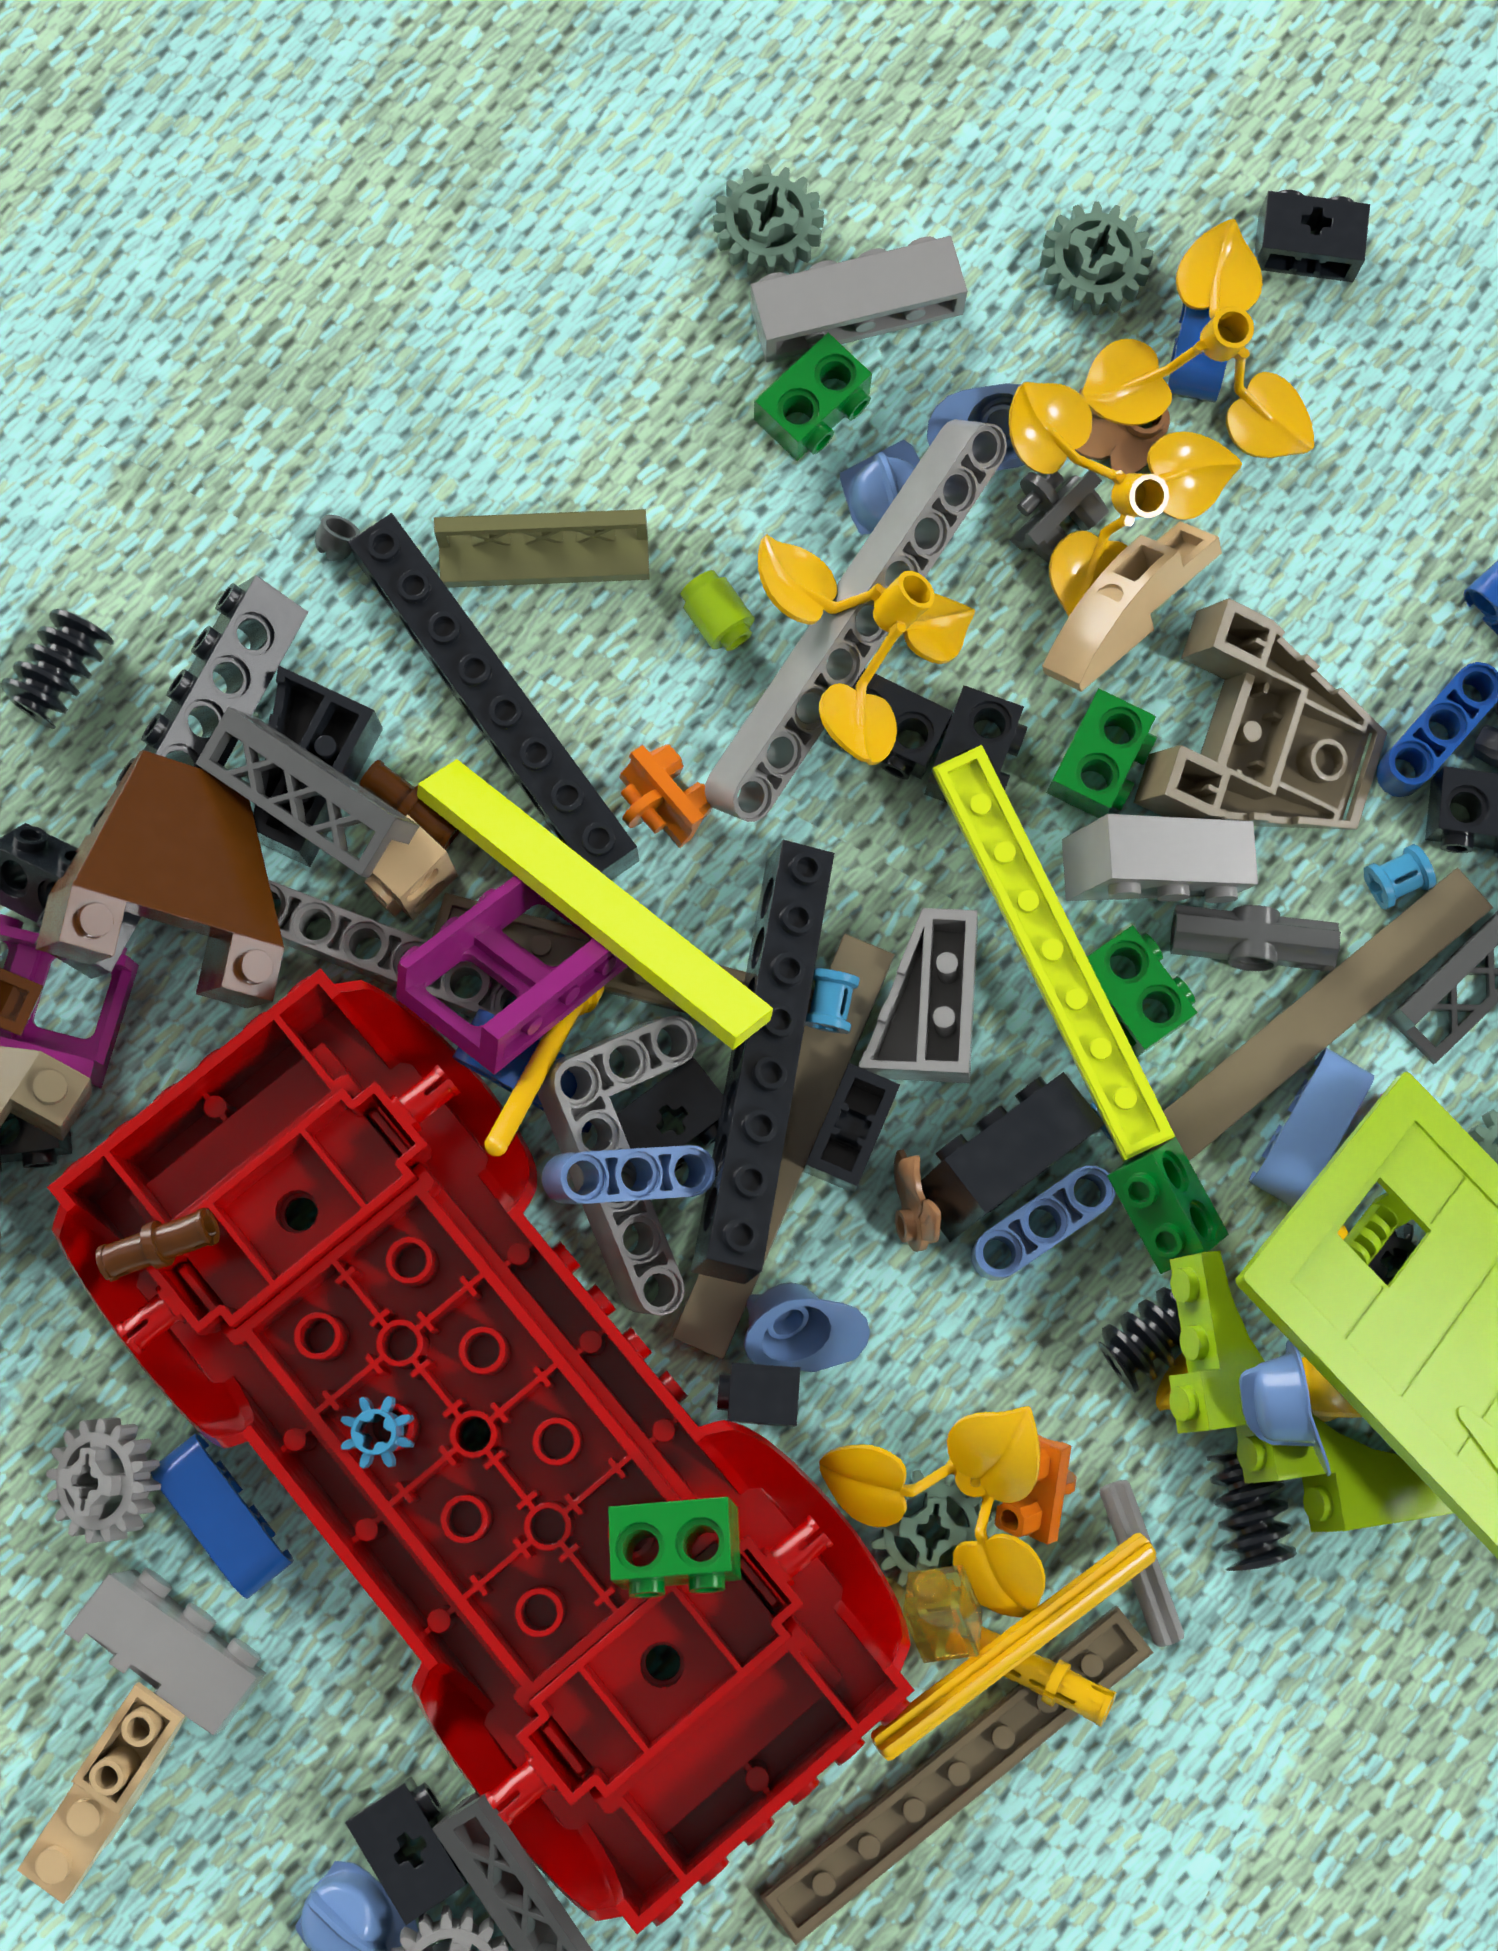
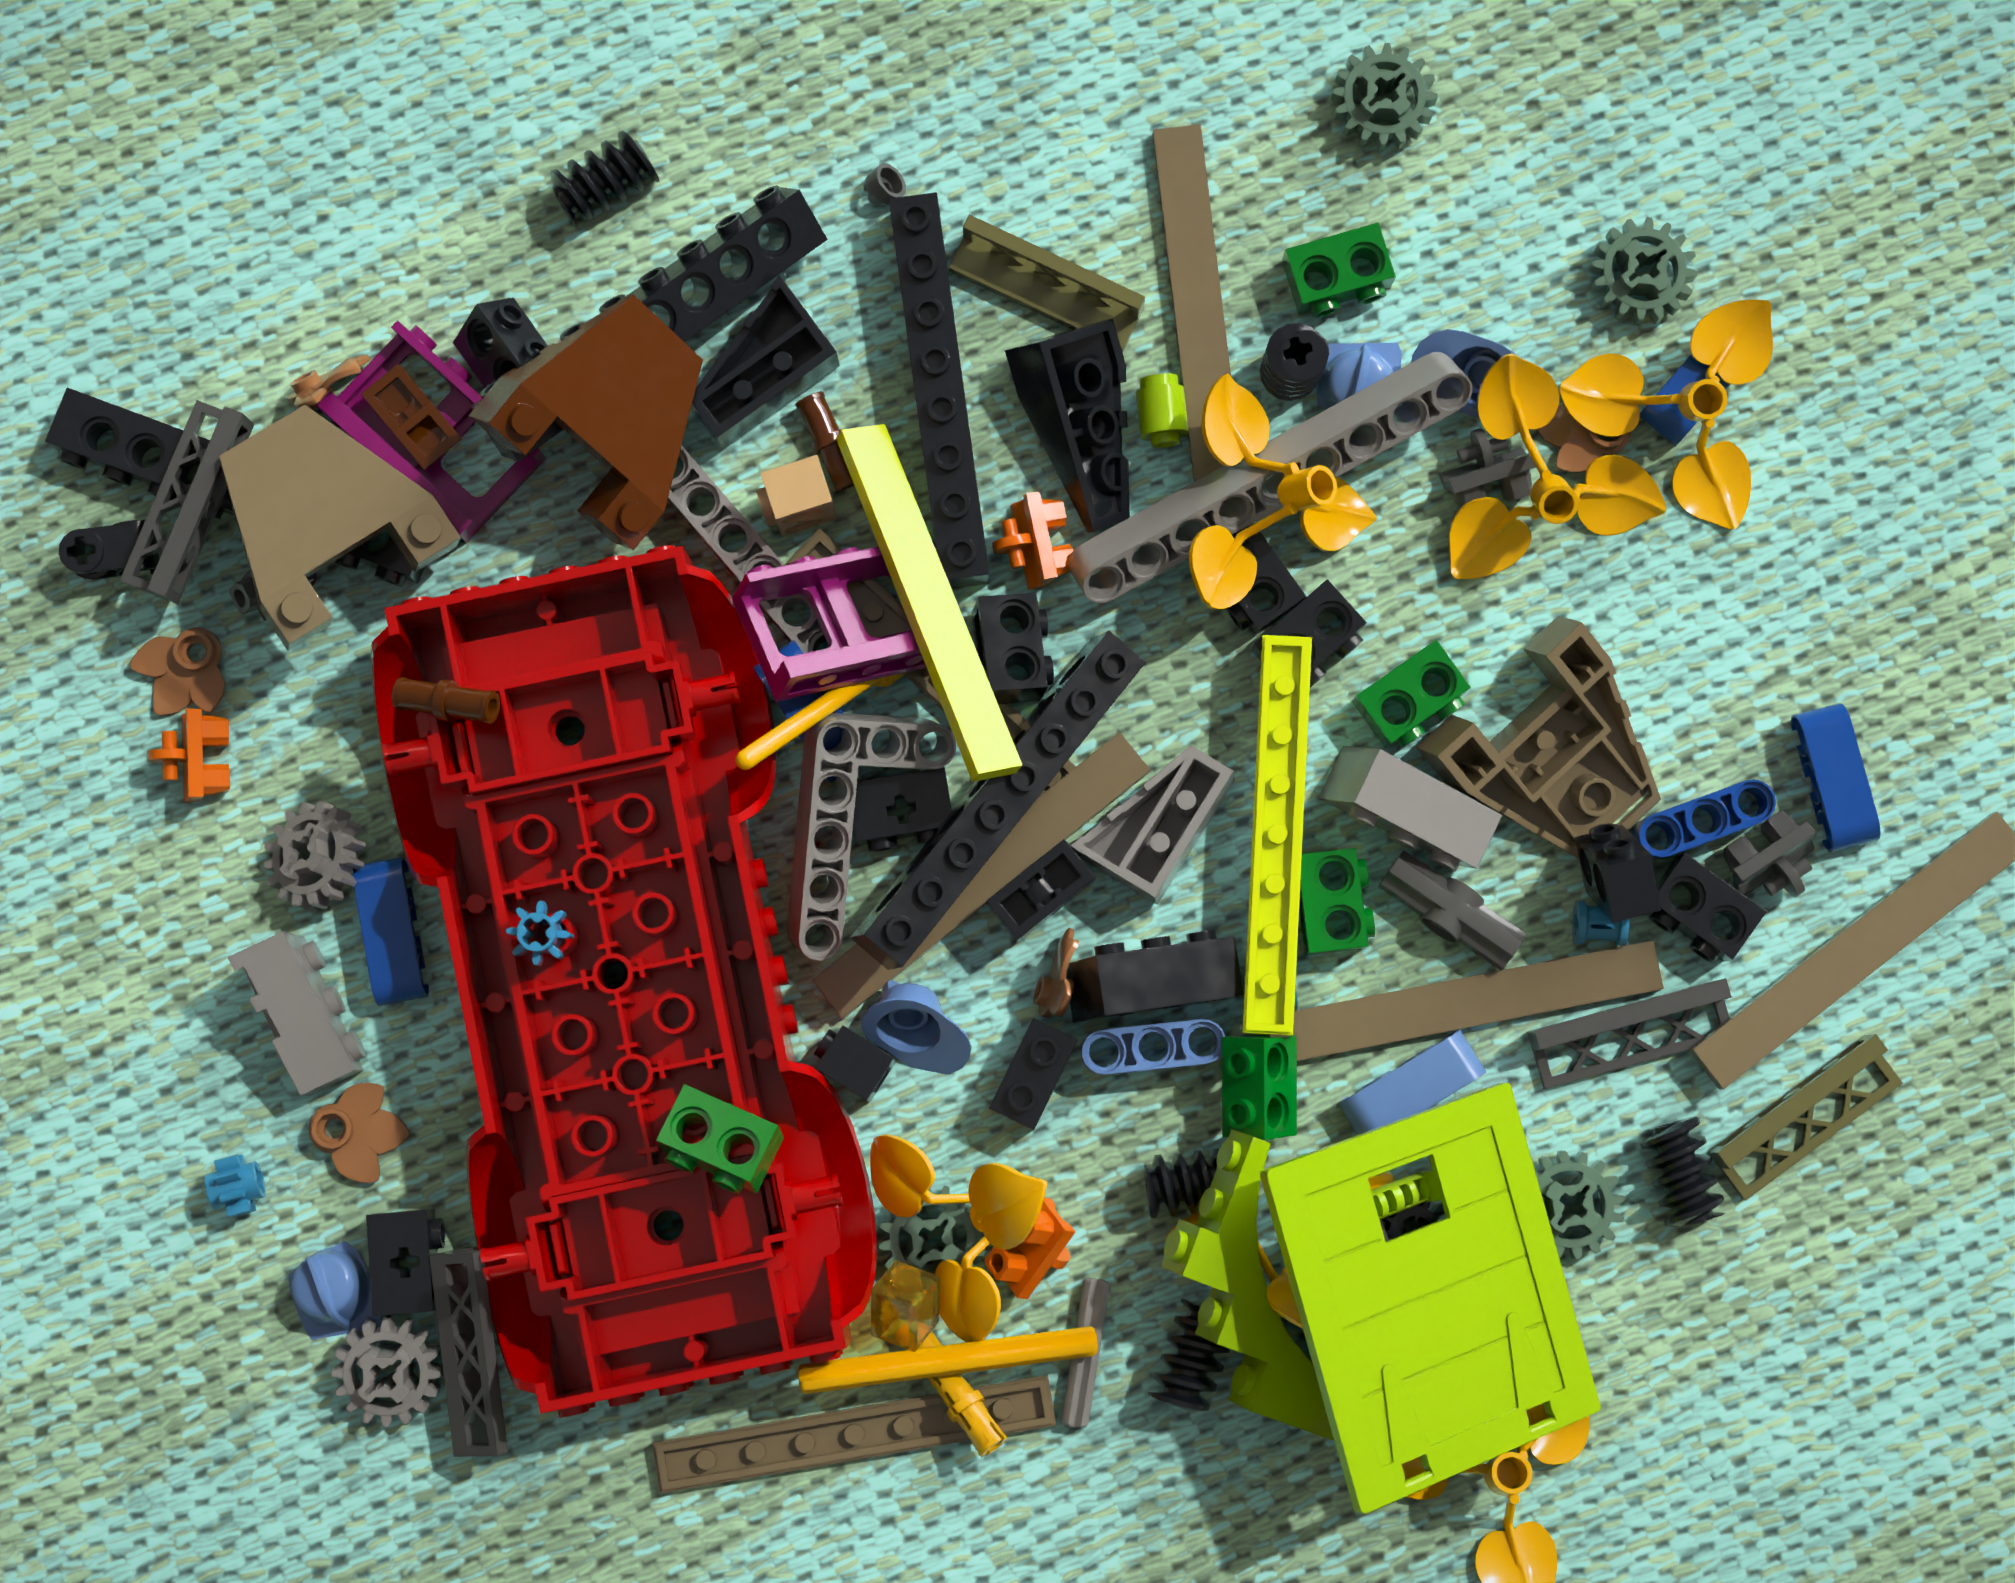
camera: 30 degrees right, 5 degrees up
(103, 1792) = (196, 1093): tan slope -> none
(192, 1866) = (235, 1185): none -> dark azure gear
(300, 1736) = (365, 1132): none -> medium nougat plate
(320, 779) = (762, 391): dark grey fence -> none
(629, 648) = (1074, 403): none -> black wedge
(653, 1180) = (856, 852): medium blue beam -> none
(682, 481) = (1192, 276): none -> dark tan tile
(704, 905) = (1001, 648): none -> black brick
(820, 499) = (1293, 361): none -> black piece
(831, 1000) = (1077, 781): dark azure bush -> none
(858, 297) = (1422, 203): light grey brick -> none
(941, 1312) = (1033, 1074): none -> black brick
(1120, 602) = (1493, 577): tan slope -> none
(1279, 1403) = (1243, 1285): medium blue piece -> none
(1332, 250) = (1811, 342): black brick -> none
(1394, 817) = (1617, 872): none -> black brick

